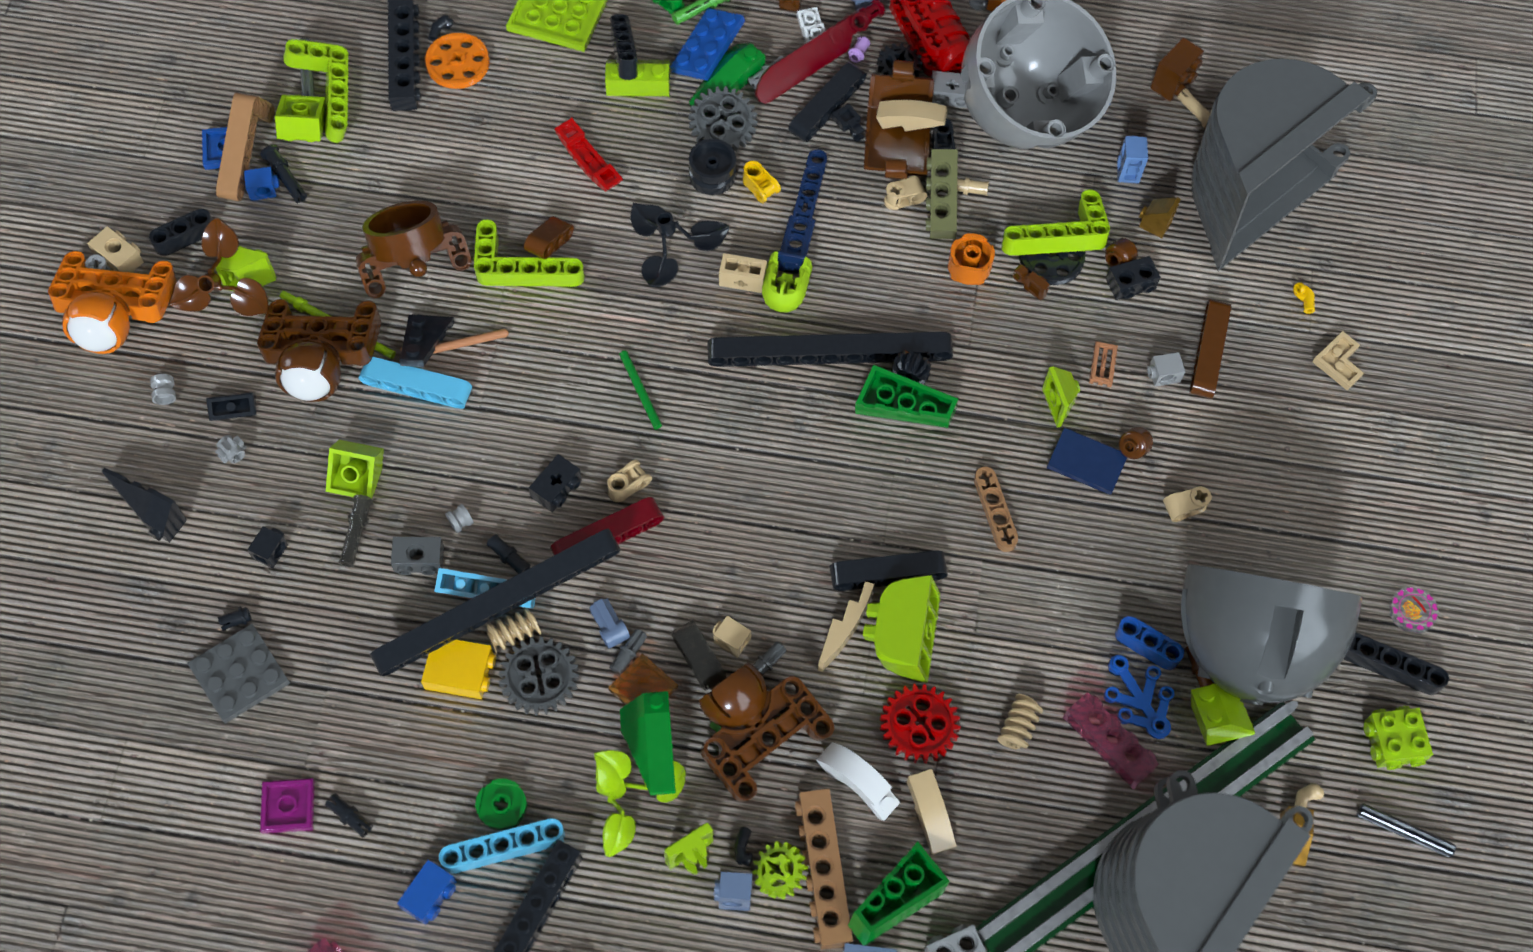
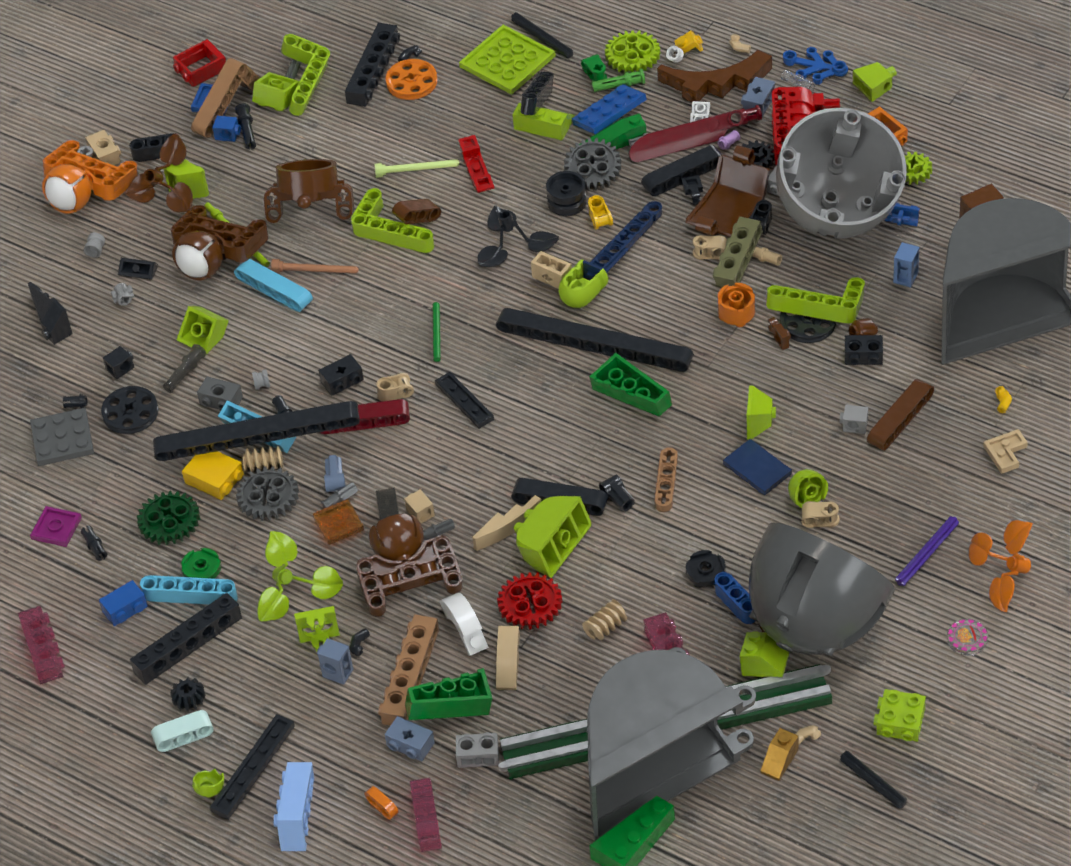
camera: 30 degrees right, 15 degrees down
(176, 90) = (194, 54): none -> red window
(315, 617) = (128, 404): none -> black wedge
(421, 338) = (290, 255): black wing -> none
(424, 770) = (168, 517): none -> dark green gear
(477, 190) = (381, 170): none -> yellowish green piece
(648, 735) = (324, 547): green wedge -> none
(715, 472) = (464, 400): none -> black tile
(790, 866) = (376, 660): lime gear -> none
(910, 114) = (741, 192): tan slope -> none
(912, 366) = (649, 364): black gear -> none
(945, 540) = (617, 493): none -> black piece
(1094, 627) = (695, 570): none -> black plate
(1101, 380) = (801, 415): nougat tile -> none
(1135, 443) = (799, 460): reddish brown head -> none
(1140, 699) = (709, 634): blue plant -> none
(1159, 215) = (909, 311): pearl gold slope -> none
(1159, 474) = (807, 486): none -> lime cylinder
(1319, 514) = (926, 551): none -> dark purple axle
(1399, 663) = (922, 663): black beam -> none
(1441, 485) = (1014, 536): none -> orange plant

